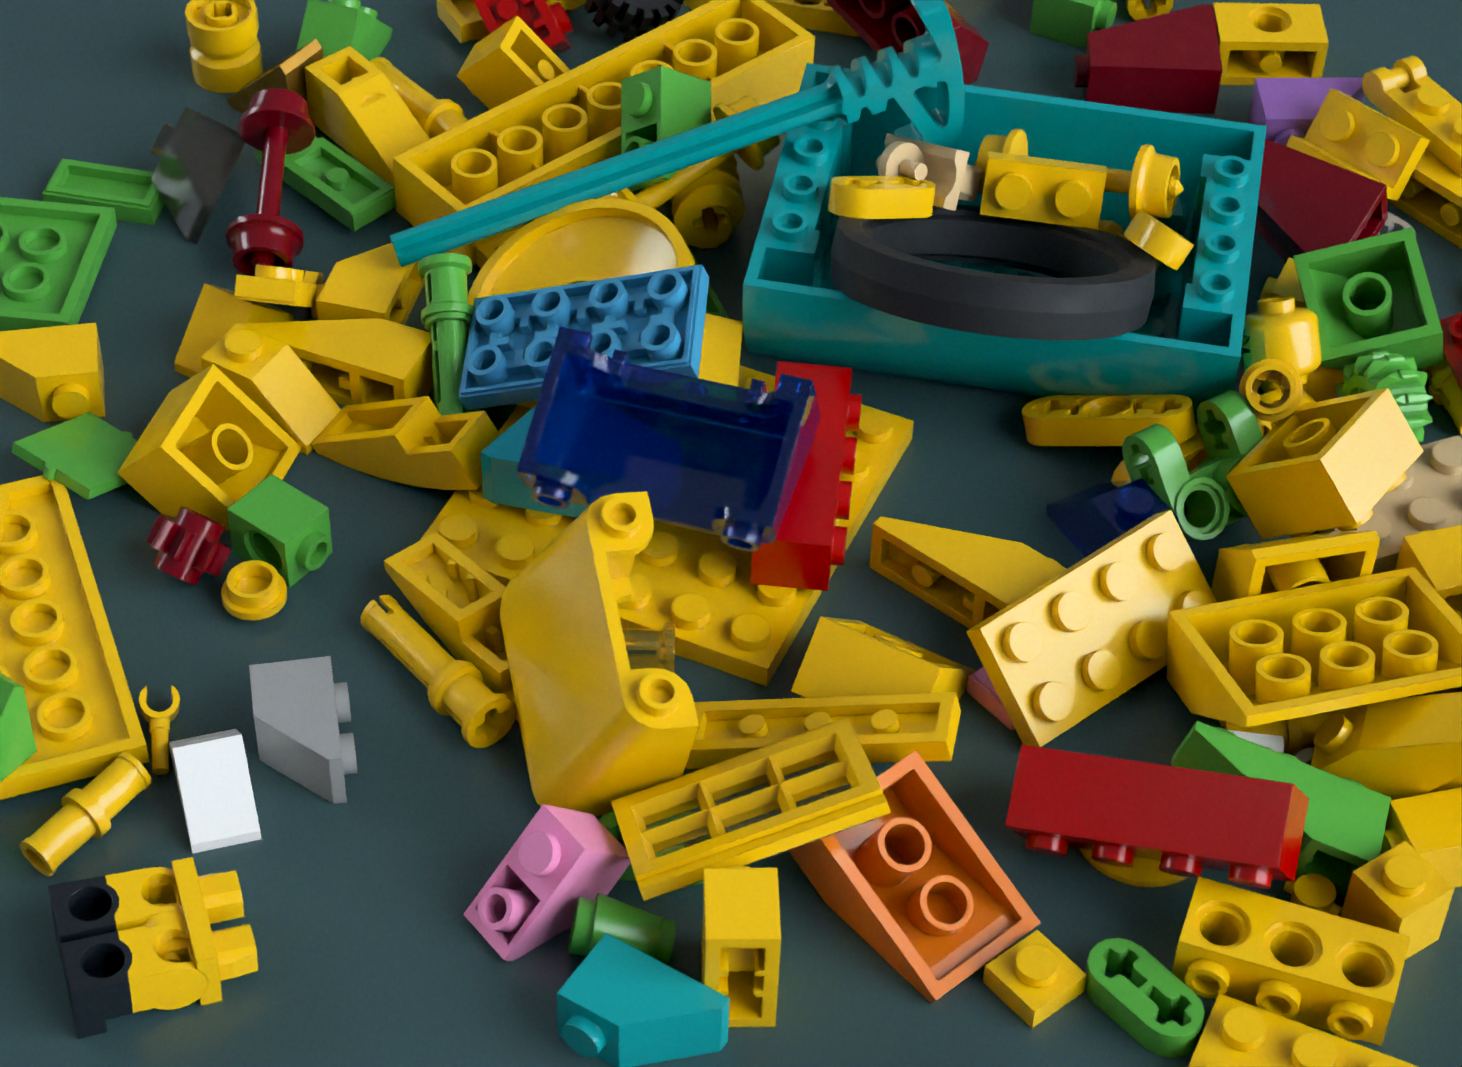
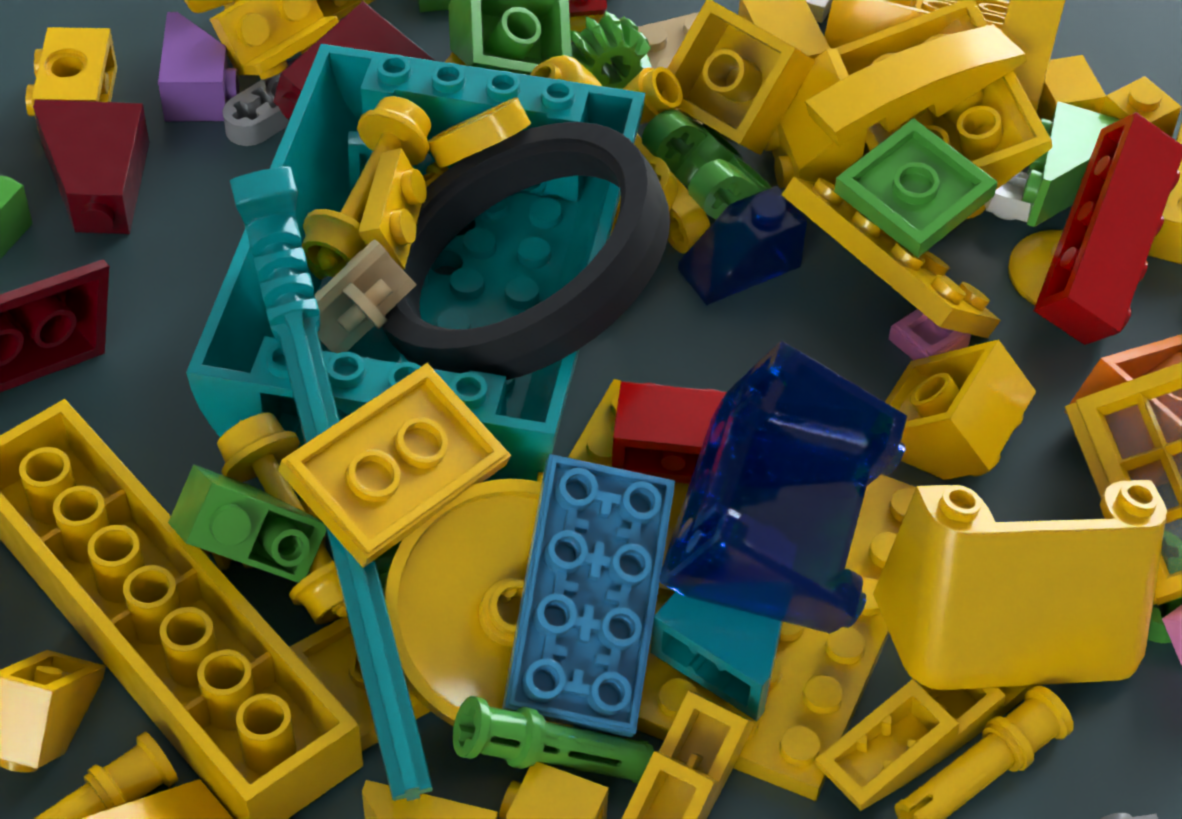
camera: 90 degrees left, 5 degrees up
(692, 174) = (393, 464): none -> yellow tile
(881, 197) = (418, 320): yellow beam -> none
(884, 724) = (1042, 432): yellow plate -> none
(957, 570) = (842, 318): yellow slope -> none
(1156, 598) = (915, 187): none -> bright green plate
(1332, 602) = (918, 78): none -> yellow slope

